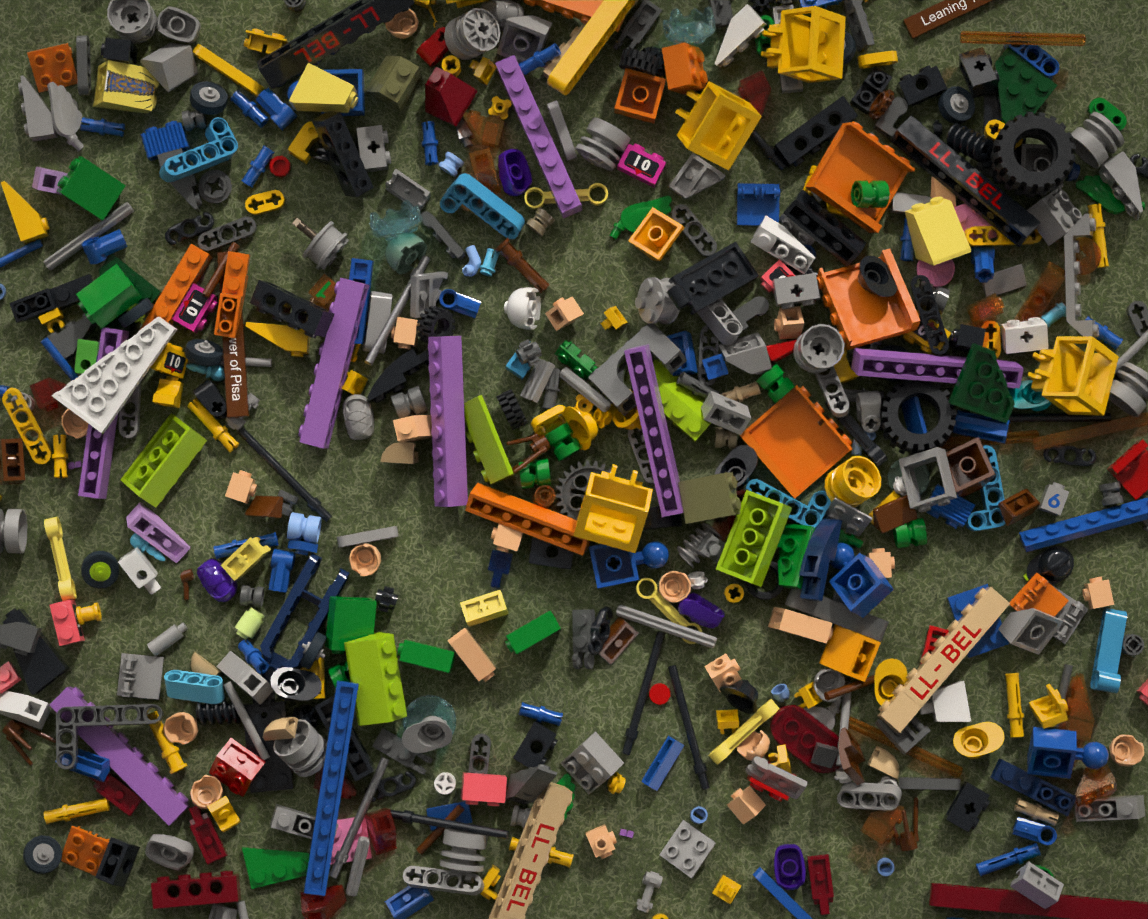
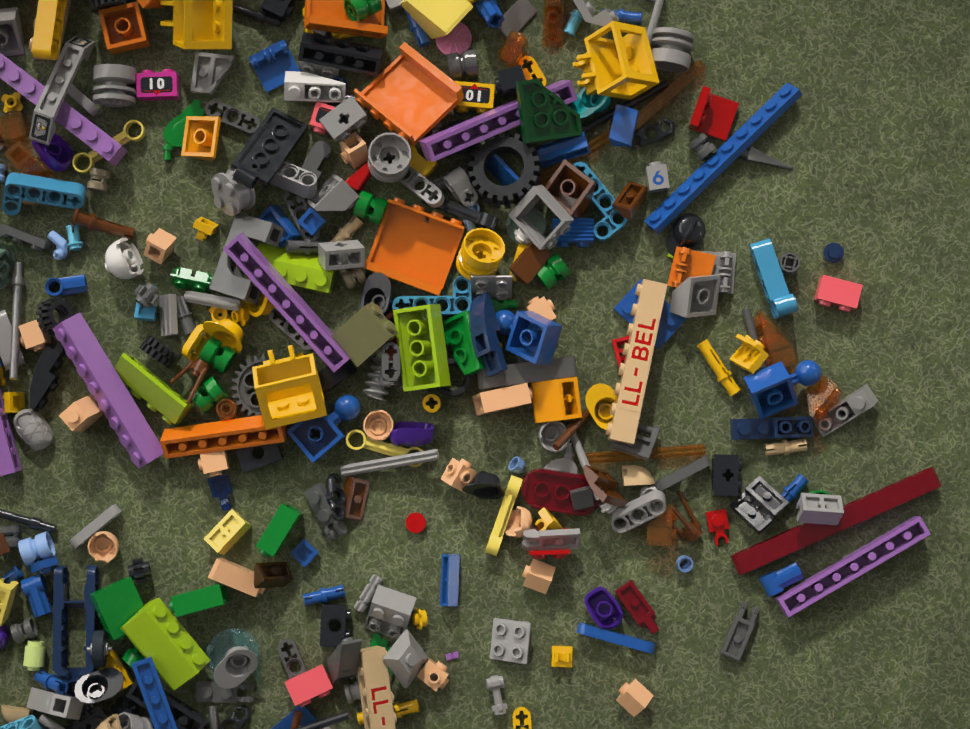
camera: 30 degrees left, 0 degrees up
(400, 453) = (84, 440): tan brick -> none
(409, 403) = (70, 392): dark grey wheel -> none
(425, 291) = (31, 291): light grey wing -> none
(442, 783) = (271, 700): white wheel -> none
(504, 669) = (271, 574): none -> dark brown slope
(539, 59) = (21, 43): blue pin -> none
(543, 665) = (304, 552): none -> blue plate
(550, 120) = (56, 89): none -> light grey slope
(581, 734) = (368, 593): none -> light grey axle
(584, 812) = (405, 658): none -> light grey slope
(631, 732) = (409, 568): black bar -> none
(697, 579) = (395, 409): white plate -> none
(699, 767) = (483, 565): black bar -> none
(701, 812) = (504, 603): medium blue hinge -> none
(723, 539) = (385, 362): none -> dark grey beam
(727, 719) = (484, 513): yellow tile -> none
(809, 696) = (542, 455): yellow tile -> none
(876, 277) = (405, 71): black piece -> none
(933, 313) = (465, 81): black beam -> none
(935, 845) = (717, 522): none -> red plate
(948, 704) = (662, 397): white torso -> none
(978, 739) = (704, 413): yellow piece -> none
(983, 851) = (759, 505): none -> slope
(1032, 830) = (790, 464): blue piece -> none
(1034, 340) = (568, 52): white brick -> none
(1048, 436) = (623, 126): none -> blue slope
(1098, 593) = (736, 235): light nougat brick -> none
(1126, 750) = (832, 354): light nougat hair -> none

